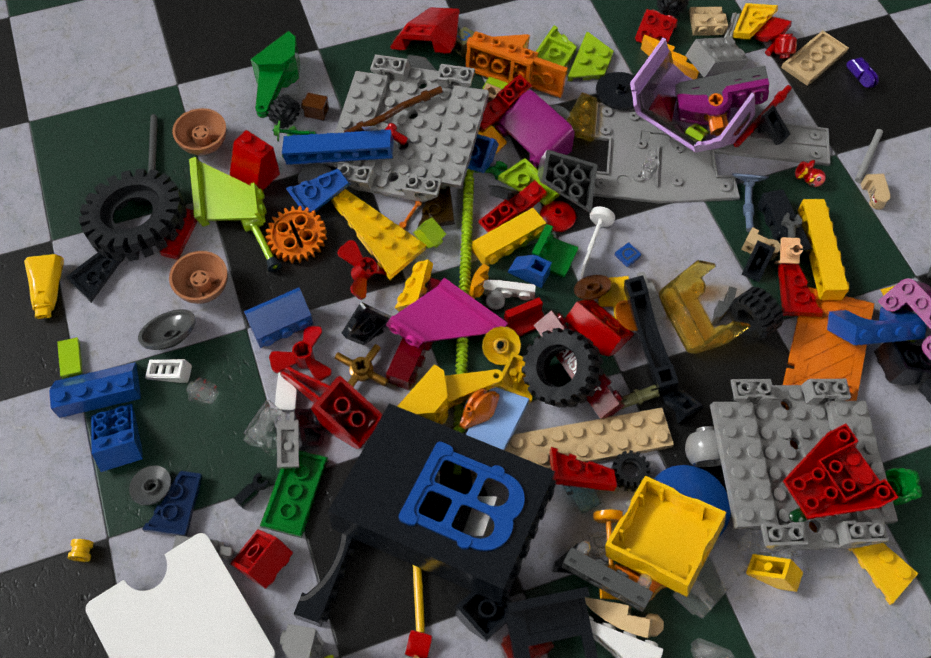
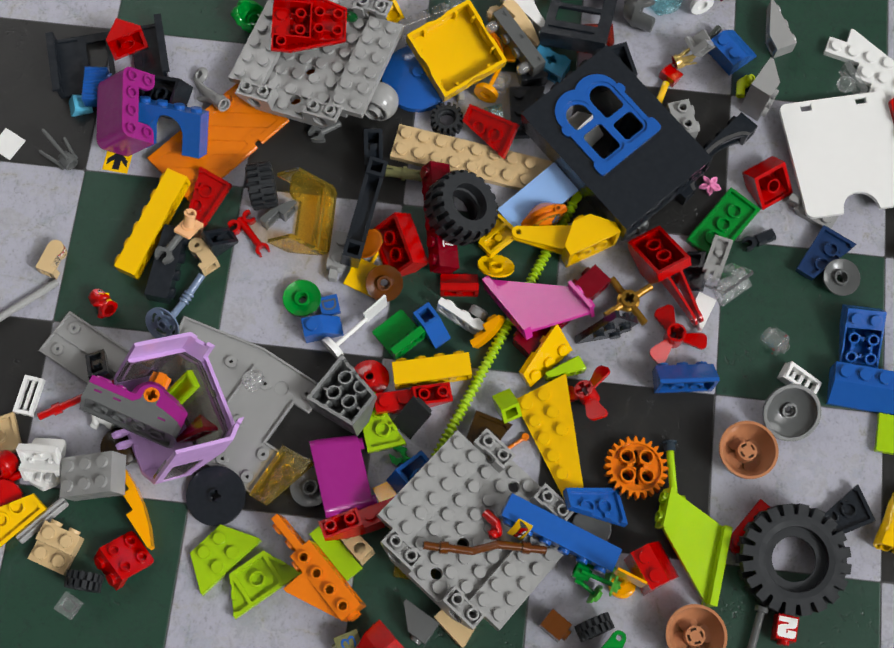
camera: 155 degrees left, 10 degrees up
(126, 164) = (784, 629): none -> brick
(269, 121) = (628, 583): none -> light orange piece
(323, 531) = (710, 185): none -> bright pink plant
(383, 587) = (685, 115): none -> light grey brick
(390, 287) = (571, 367): none -> lime slope
(548, 579) = (555, 65): none -> dark azure brick
(561, 527) = (519, 98): none -> black wing
(622, 230) = (321, 326): none -> blue slope
(654, 240) = (298, 290): none -> green dish
(733, 282) = (243, 223): none -> red bar
(764, 55) = (42, 462): none -> white piece
(804, 97) = (21, 394): none -> white tile
(855, 378) = (219, 101): none -> light grey plant

